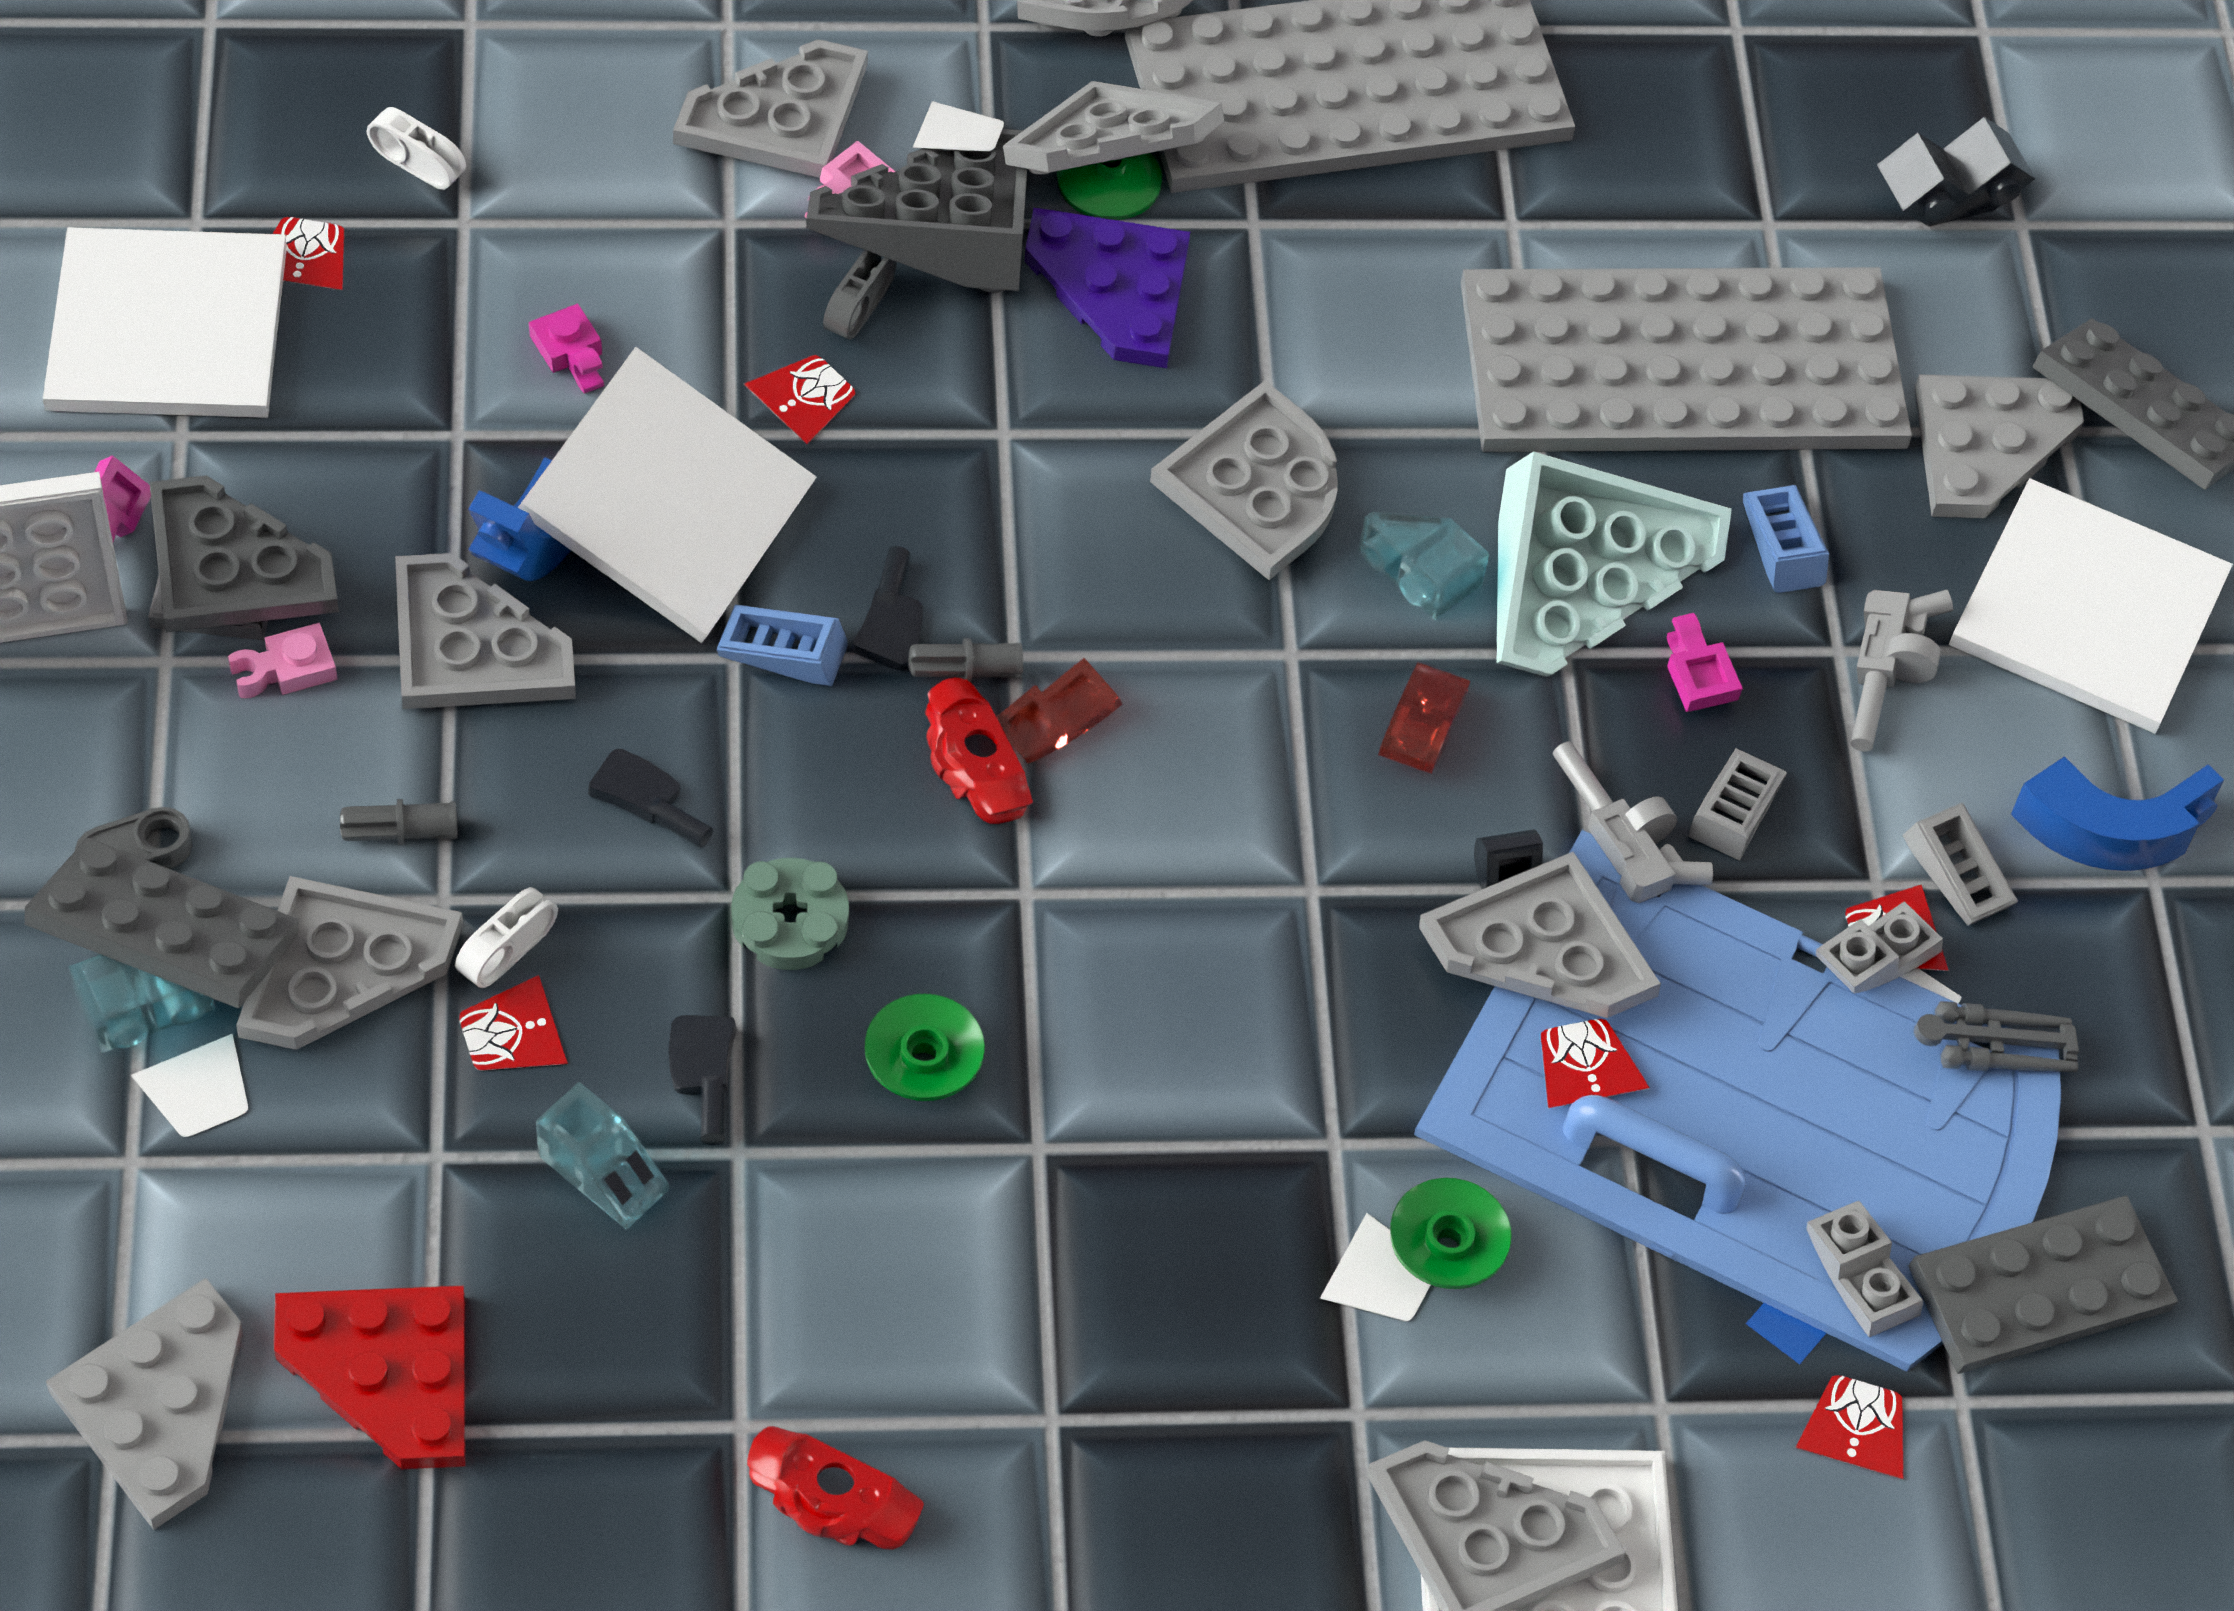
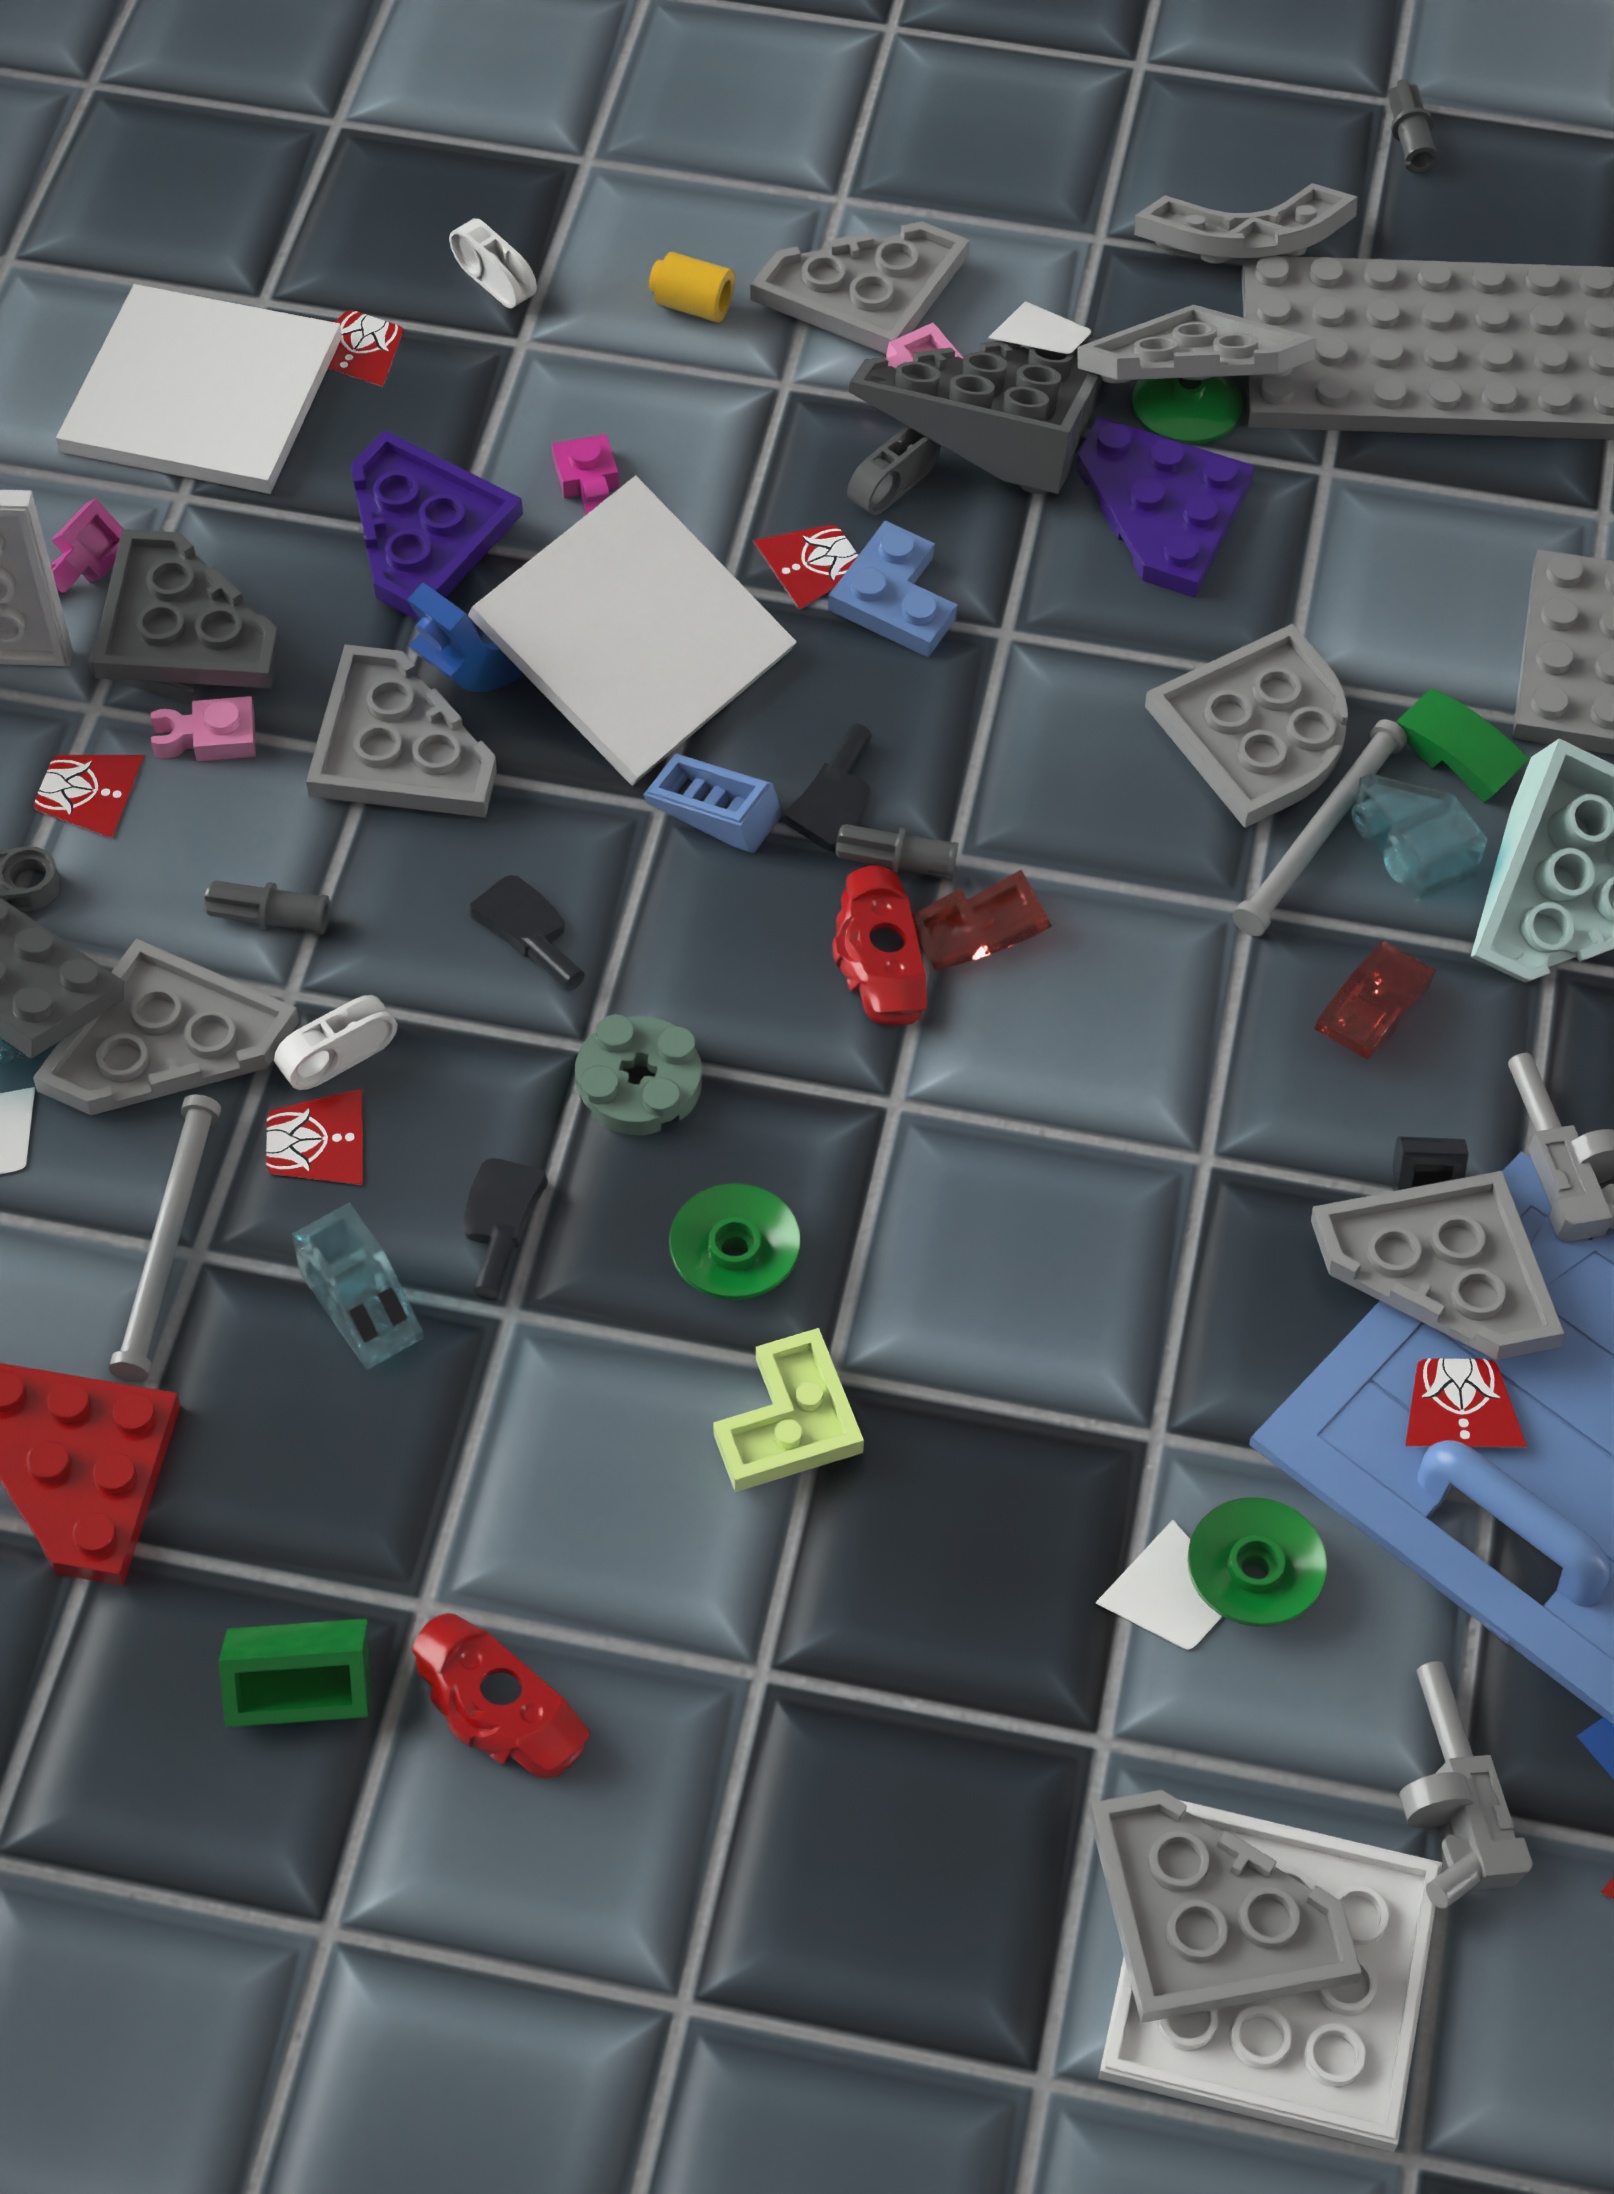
camera: 20 degrees right, 0 degrees up
(187, 741) = (88, 789): none -> red sticker
(410, 1266) = (132, 1360): none -> light grey bar
(429, 421) = (424, 519): none -> dark purple plate
(616, 140) = (692, 286): none -> yellow brick
(651, 1506) = (295, 1673): none -> green brick
(883, 421) = (883, 595): none -> medium blue plate
(1030, 1195) = (803, 1426): none -> yellowish green plate
(1299, 660) = (1253, 915): none -> light grey bar
(1434, 459) = (1471, 746): none -> green slope
(1669, 1391) = (1468, 1797): none -> light grey piece

